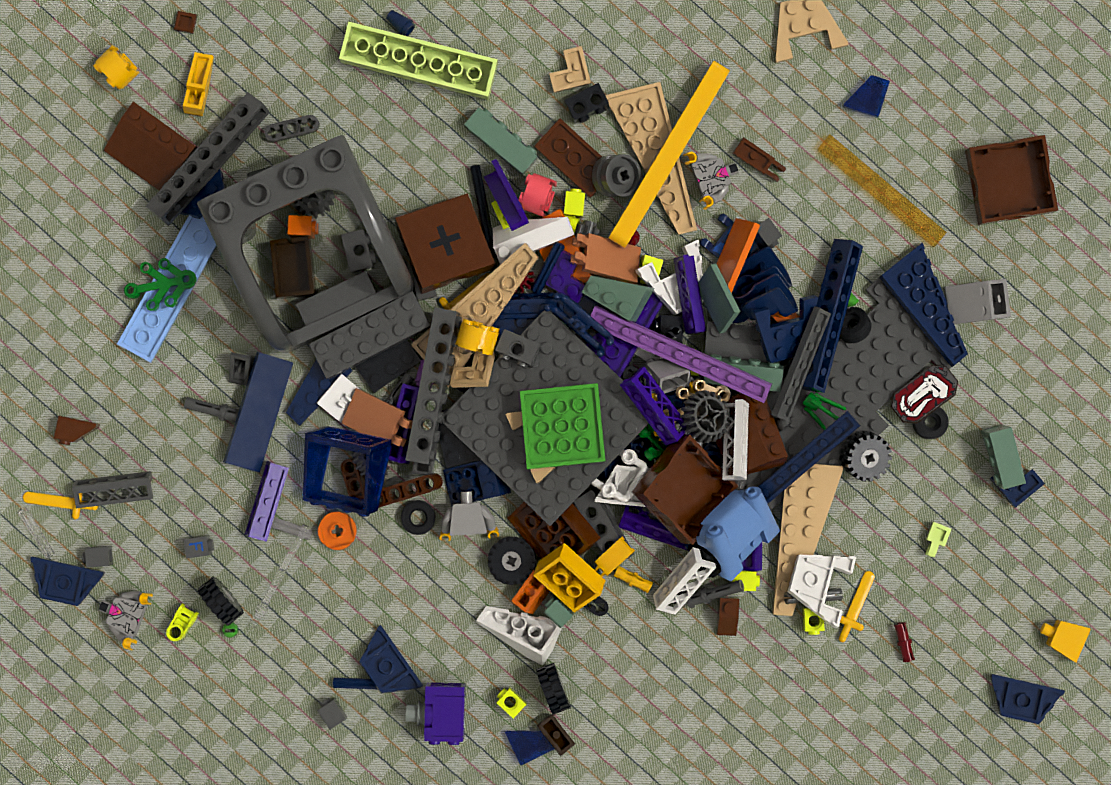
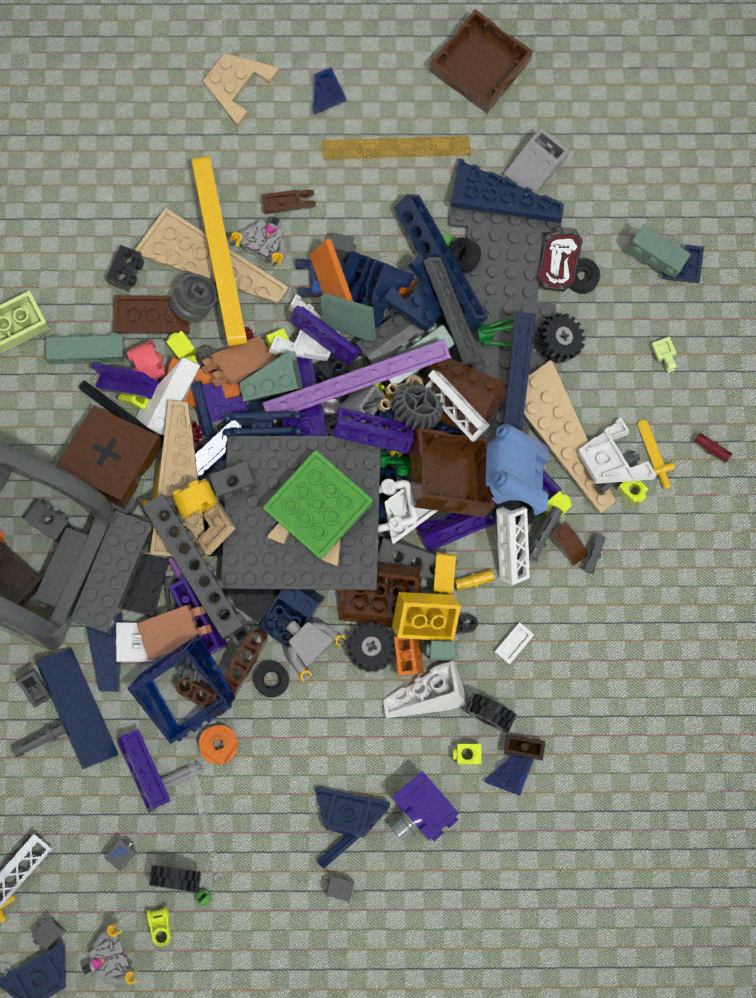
camera: 45 degrees left, 10 degrees down
(575, 74) = (98, 256): tan plate -> none
(619, 652) = (514, 643): none -> white tile
(739, 640) = (594, 553): none -> dark grey pin

